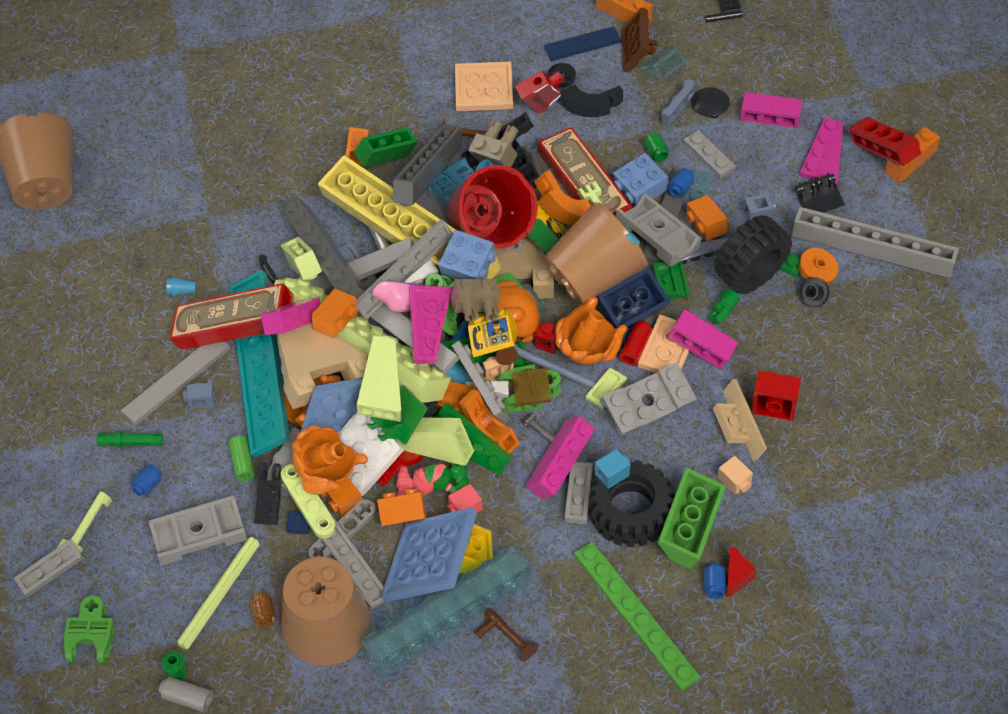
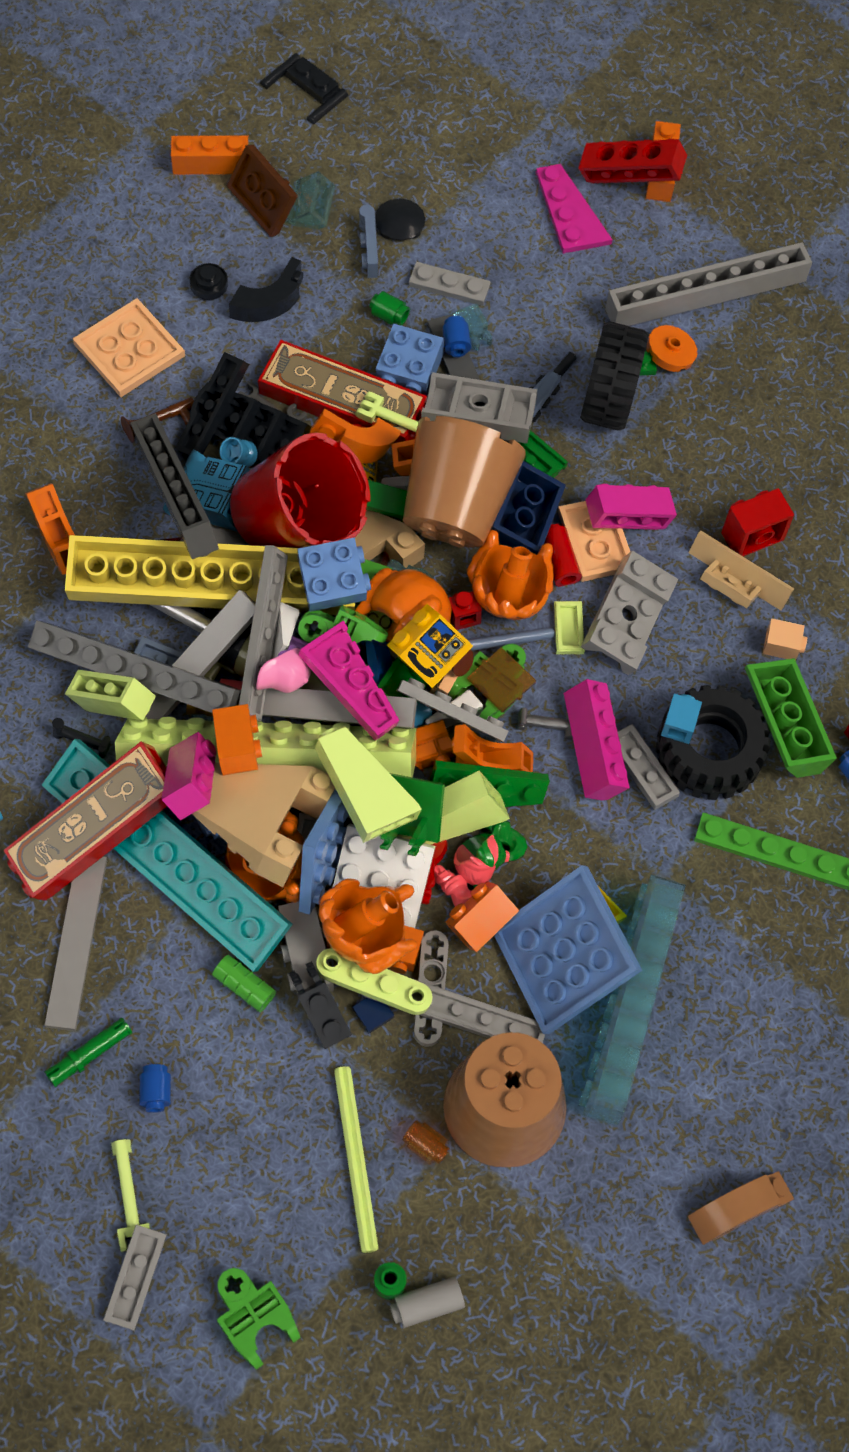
camera: 45 degrees left, 10 degrees up
(174, 535) = (255, 1133): light grey piece -> none
(200, 395) = (126, 940): sand blue brick -> none
(385, 147) = (87, 493): green brick -> none
(464, 499) = (538, 863): coral brick -> none
(476, 296) = (385, 614): dark tan brick -> none
(494, 619) = (679, 971): reddish brown piece -> none
(497, 151) = (219, 423): dark tan brick -> none
(540, 90) = (211, 313): red torso -> none
(582, 43) = (196, 228): dark blue tile -> none
(706, 218) = (515, 361): orange brick -> none
(724, 306) = (614, 454): green hinge -> none
(758, 206) = (557, 317): sand blue brick -> none
(771, 110) = (475, 192): dark pink brick -> none
(814, 292) = (693, 380): black plate -> none
(820, 194) = (605, 263): black hinge -> none

